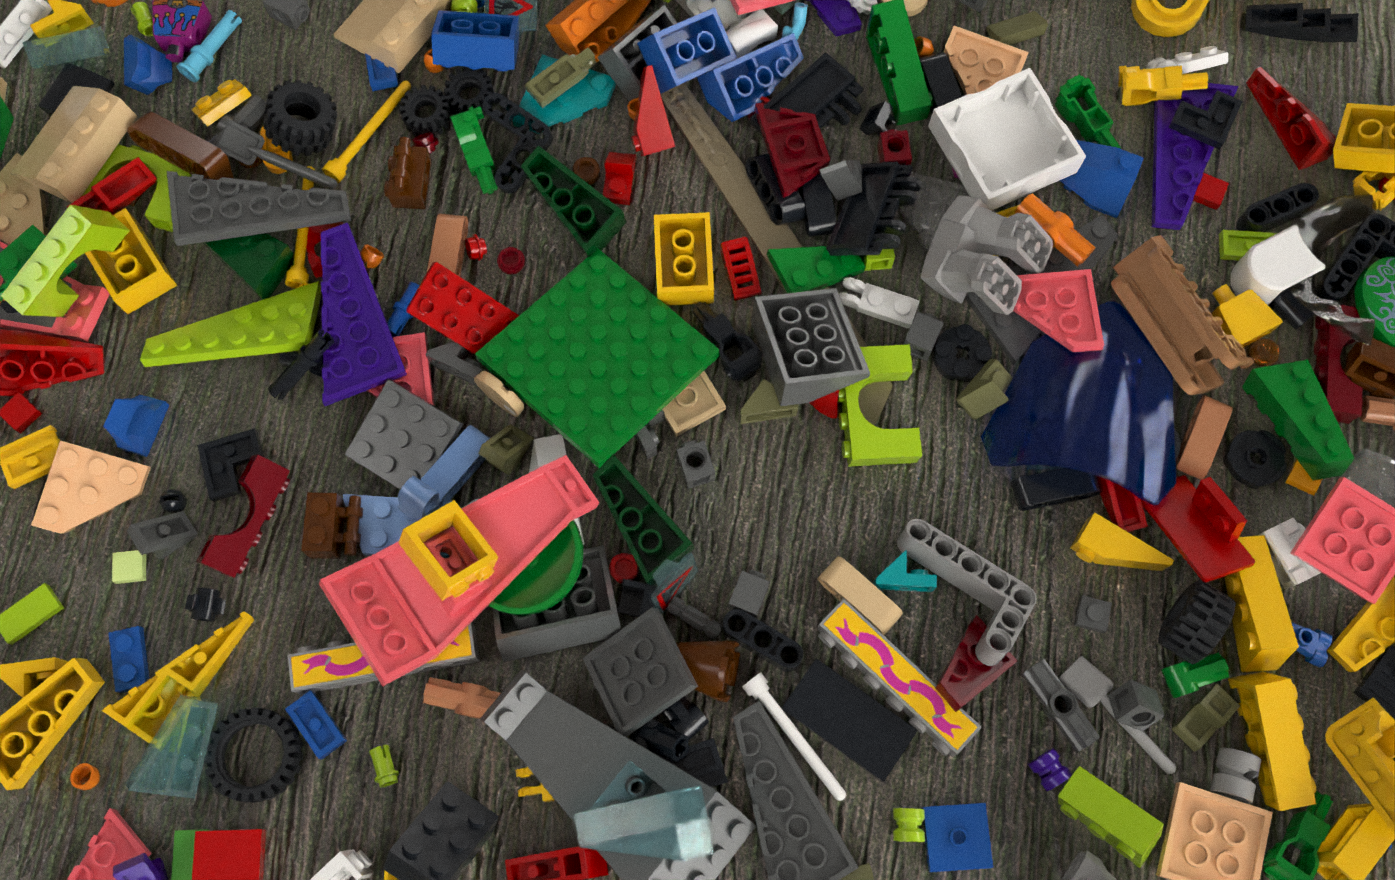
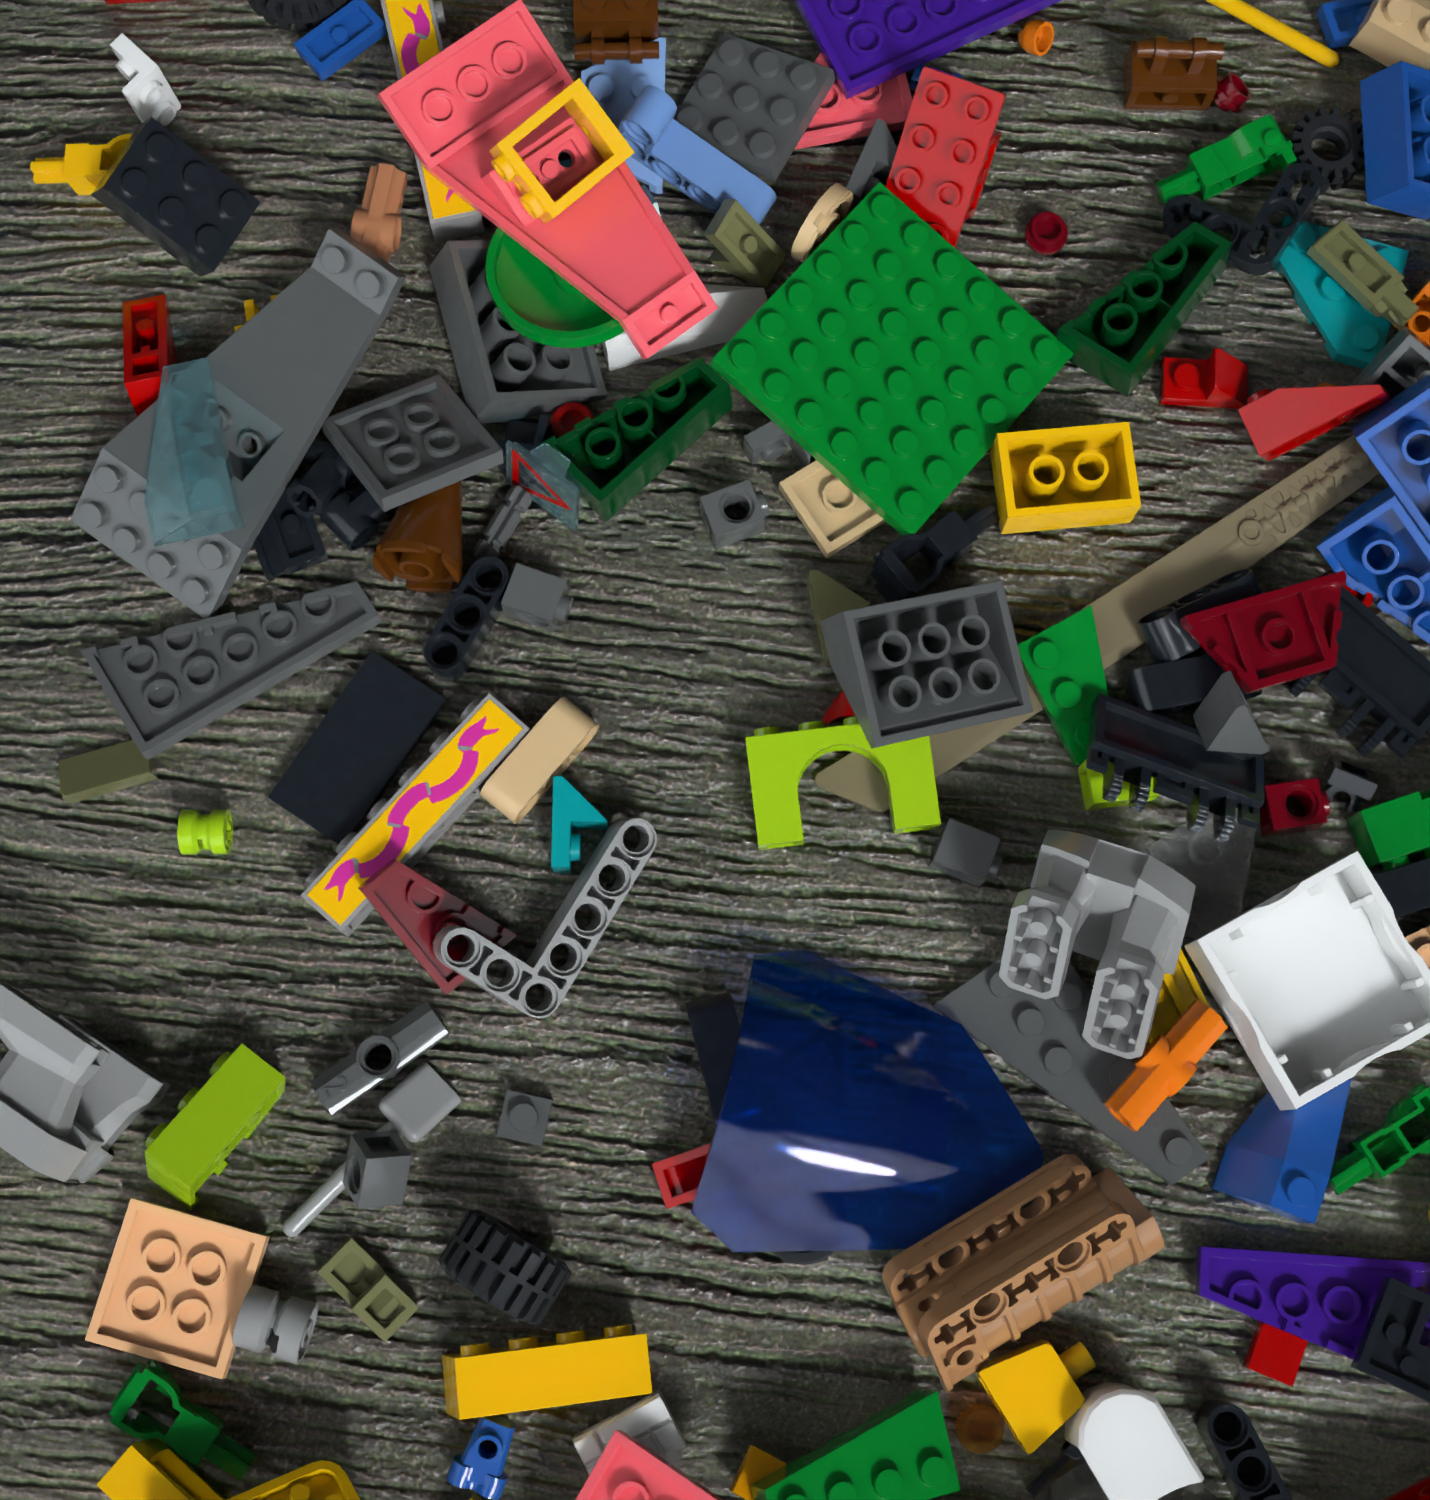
camera: 85 degrees right, 5 degrees up
(383, 766) = (283, 128): lime pin -> none
(424, 98) = (1292, 68): black tyre -> none
(449, 242) = (1053, 140): nougat beam -> none
(475, 247) = (1062, 180): red plate -> none
(587, 169) = (1210, 331): reddish brown tile -> none
(736, 251) = (1097, 559): red slope -> none
(759, 689) = (398, 618): white piece -> none
(880, 302) = (1021, 791): white hinge -> none
(957, 837) = (191, 905): blue plate -> none
(961, 338) = (940, 946): black plate -> none
(985, 390) = (883, 953): olive slope -> none
(1050, 769) = (285, 1039): dark purple wheel -> none
(1062, 308) = (1023, 1068): coral plate -> none
(1111, 545) = (632, 1142): yellow slope -> none
(1188, 677) = (419, 1255): green piece -> none
(1203, 437) = (820, 1309): nougat beam -> none
(1203, 528) = (654, 1284): red bracket -> none
(1235, 243) = (1178, 1394): lime plate -> none
(1244, 470) = (818, 1396): black plate -> none
(1276, 738) = (331, 1389): yellow wedge -> none

